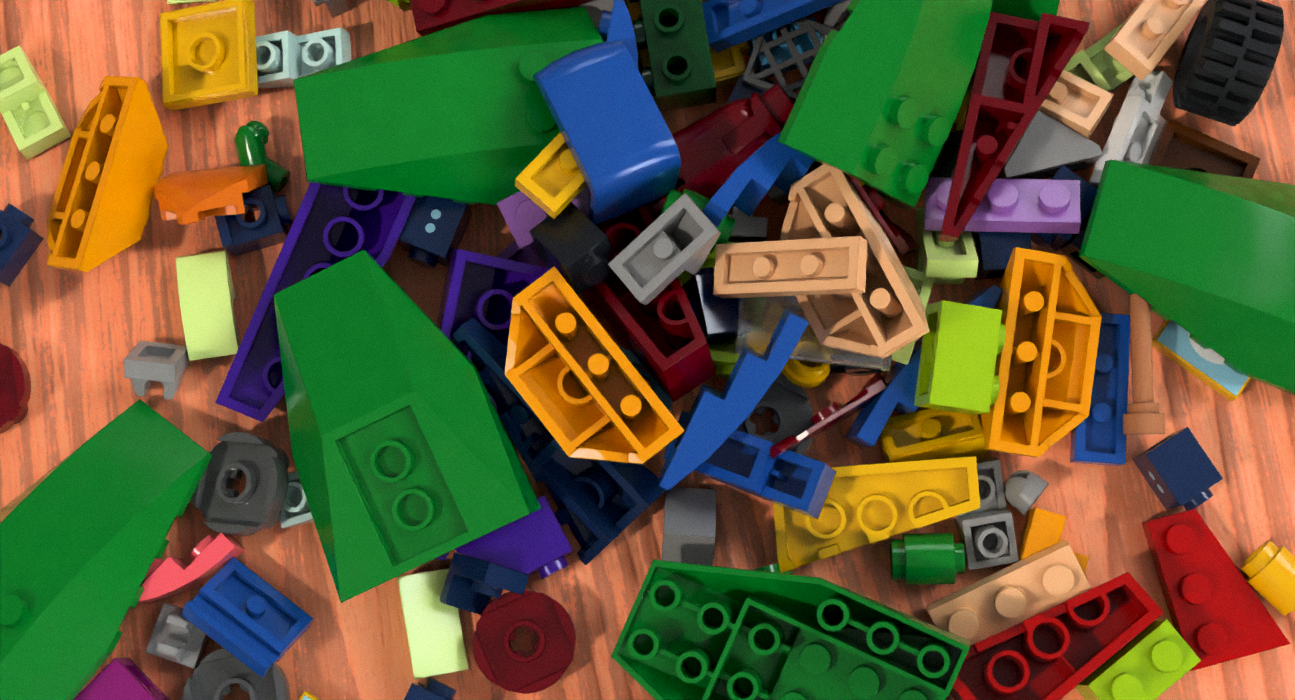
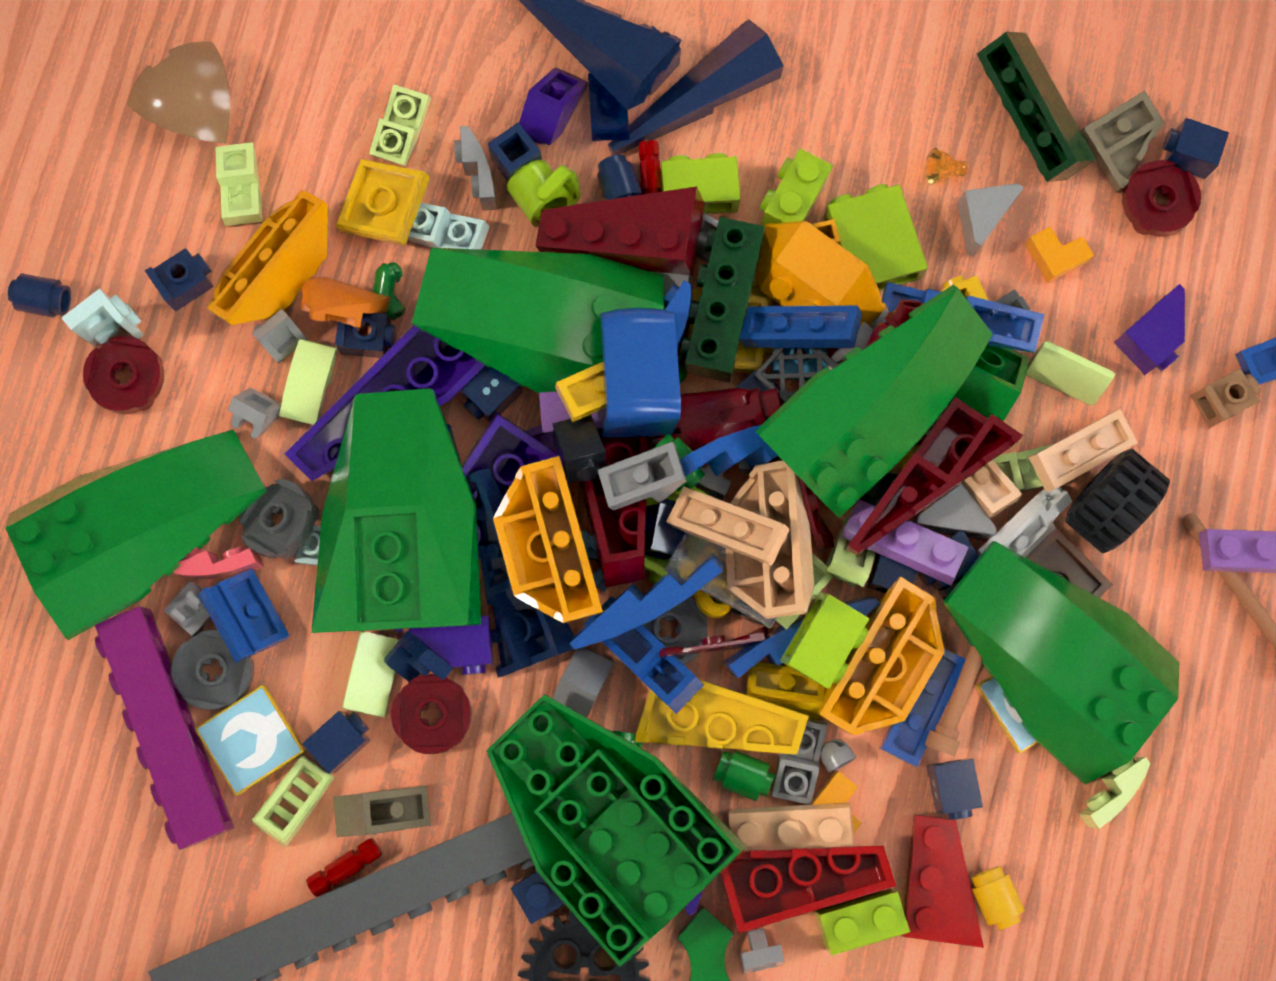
camera: 20 degrees right, 0 degrees up
(148, 264) = (278, 335): none -> light grey tile

